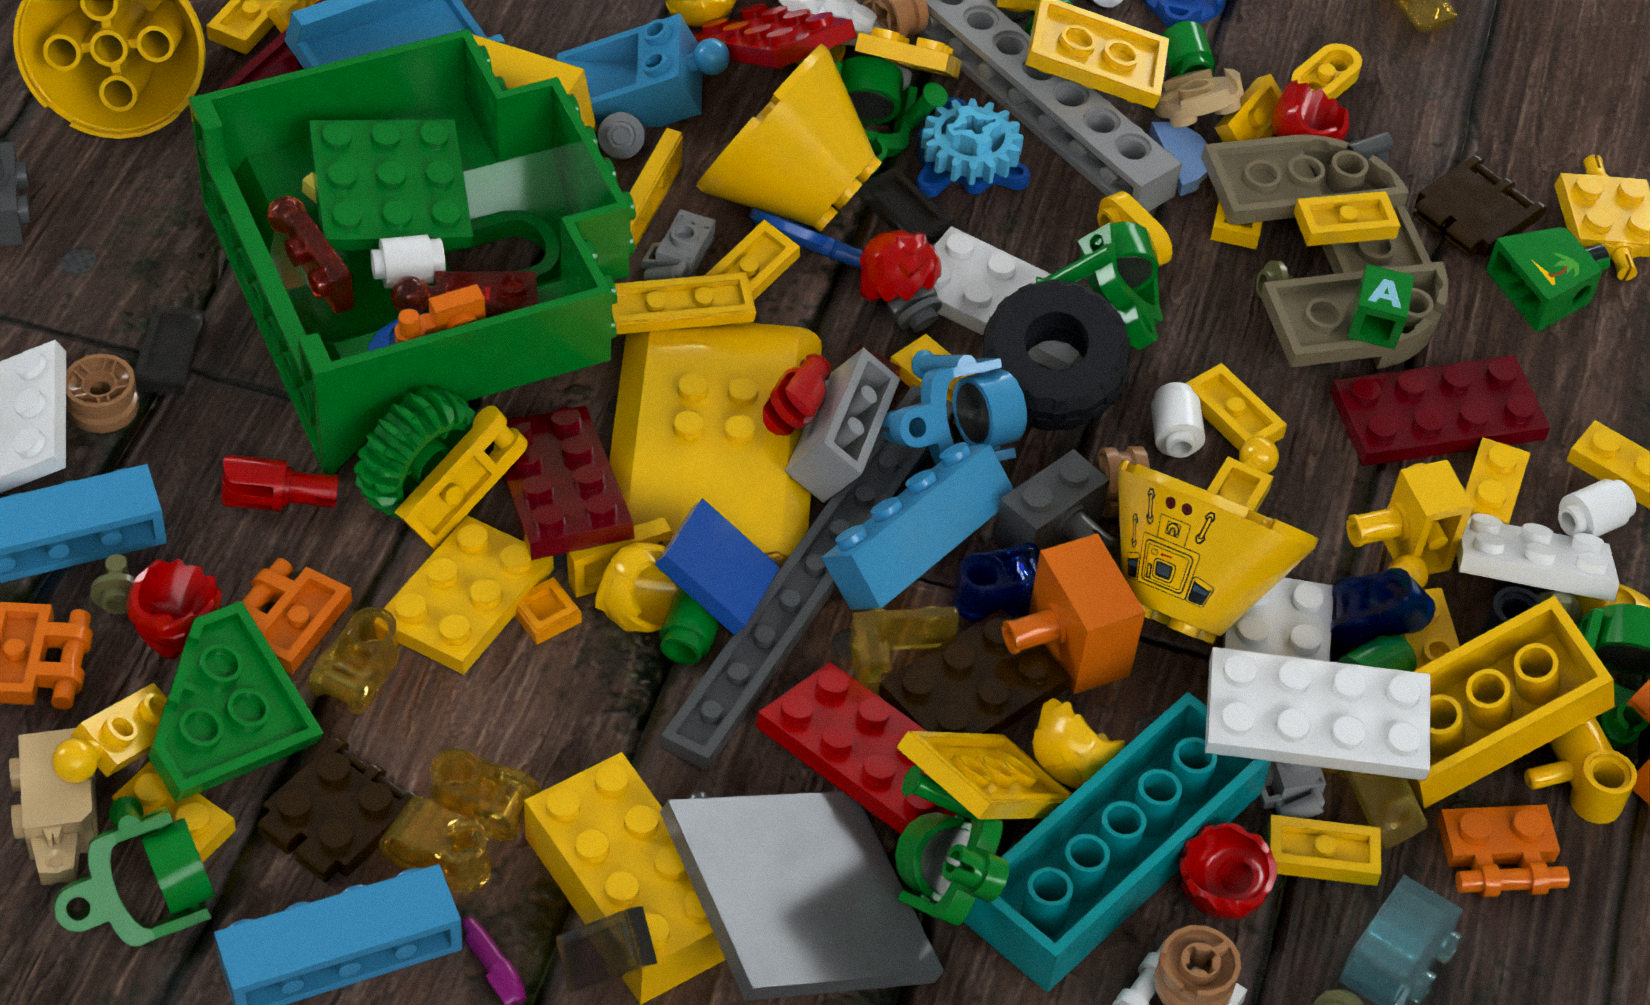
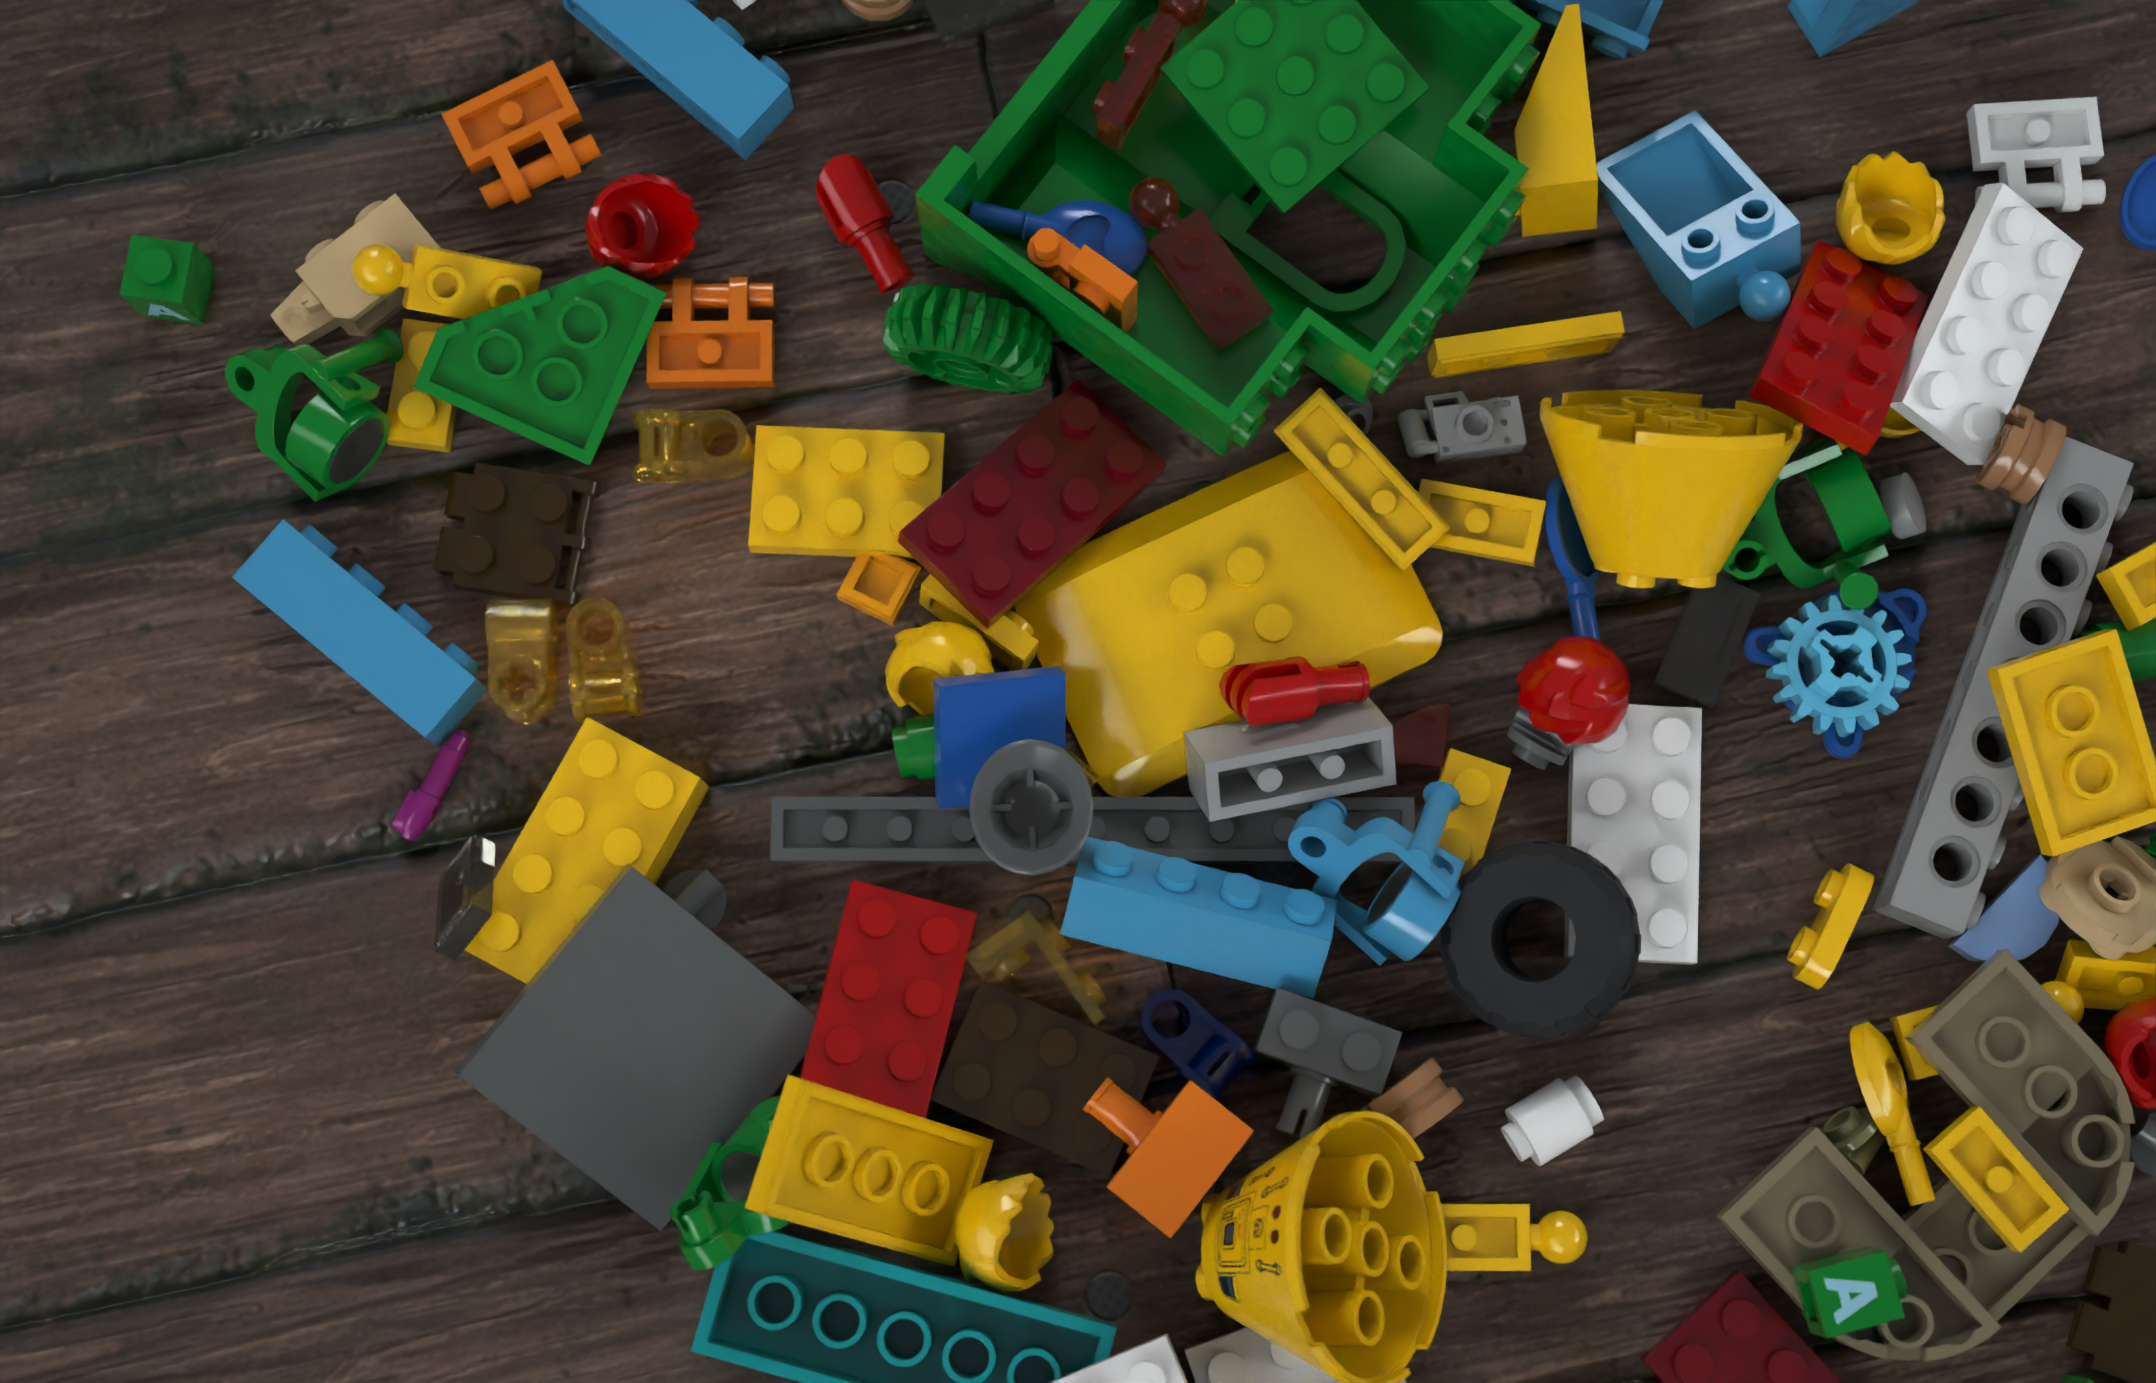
camera: 65 degrees right, 30 degrees up
(112, 589) = (642, 156): olive plate -> none
(407, 257) = (1200, 169): white brick -> none
(462, 477) = (965, 405): yellow plate -> none
(621, 135) = (1601, 262): dark grey plate -> none
(788, 552) = (1031, 807): none -> dark grey hat
(925, 56) = (1923, 520): yellow plate -> none
(1123, 269) = (1736, 927): green piece -> none
(1235, 408) = (1617, 1175): yellow plate -> none
(1258, 252) = (1888, 1103): none -> yellow piece

